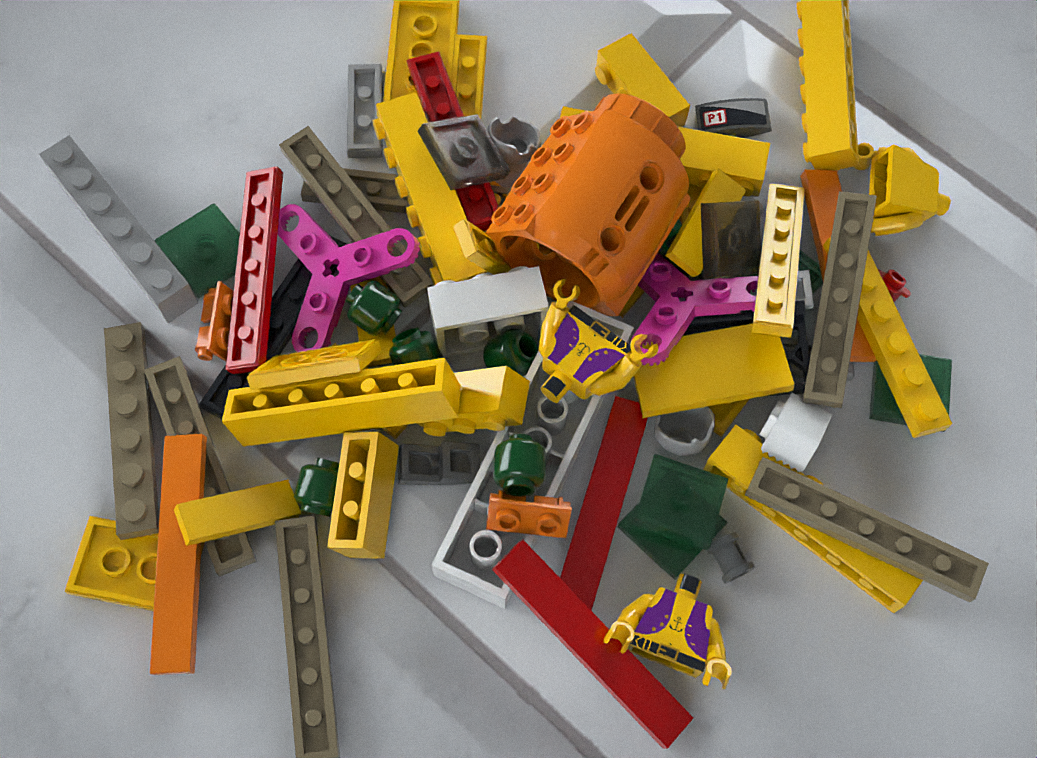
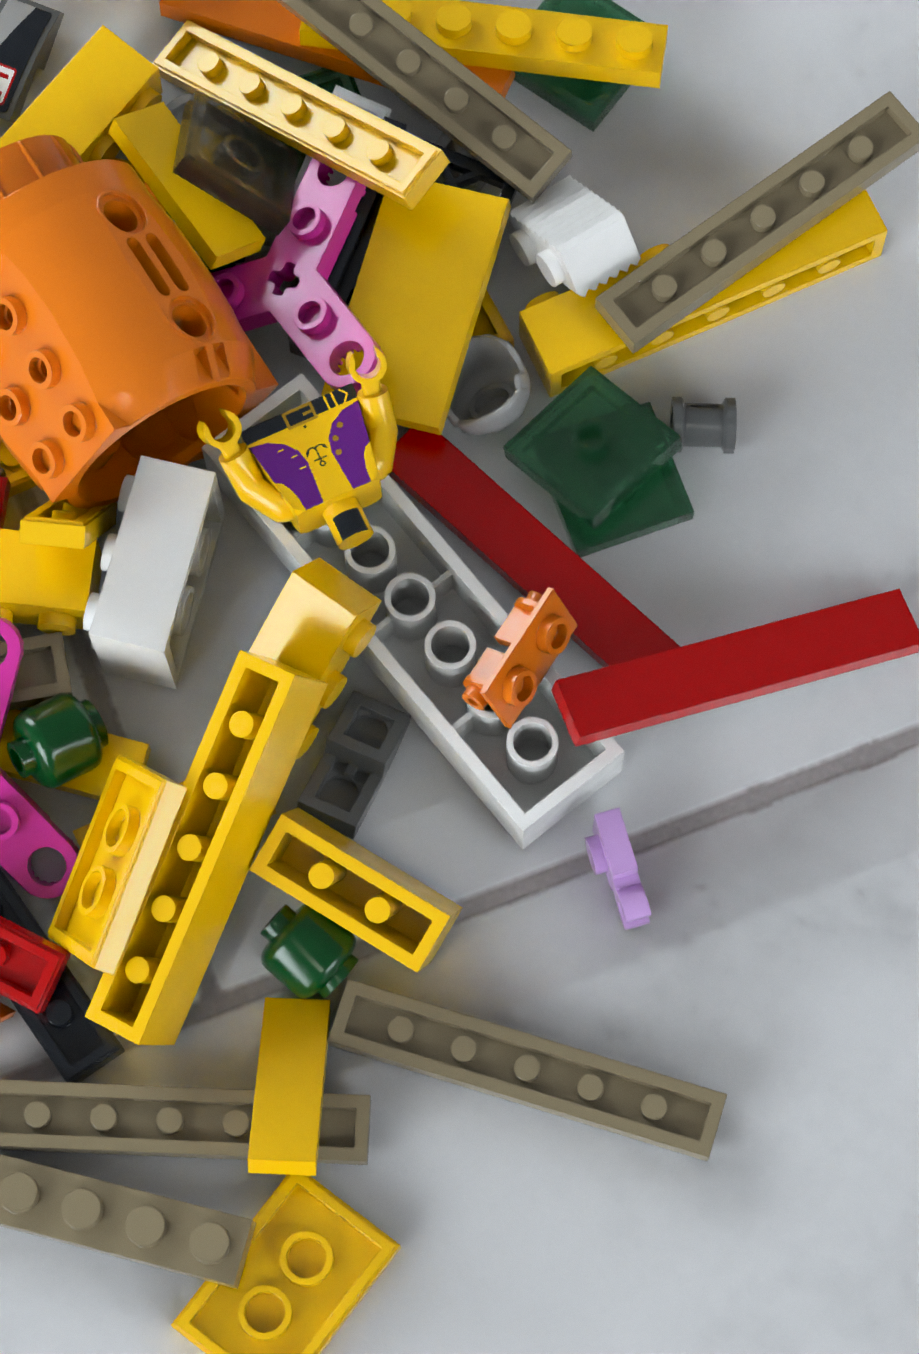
camera: 60 degrees left, 5 degrees up
(177, 564) = (309, 1206): orange tile -> none
(414, 347) = (166, 714): dark green head -> none
(450, 626) = (612, 853): none -> lavender plate
(511, 349) = (241, 574): dark green head -> none
(519, 465) = (445, 631): dark green head -> none
(674, 631) = (774, 549): yellow torso -> none

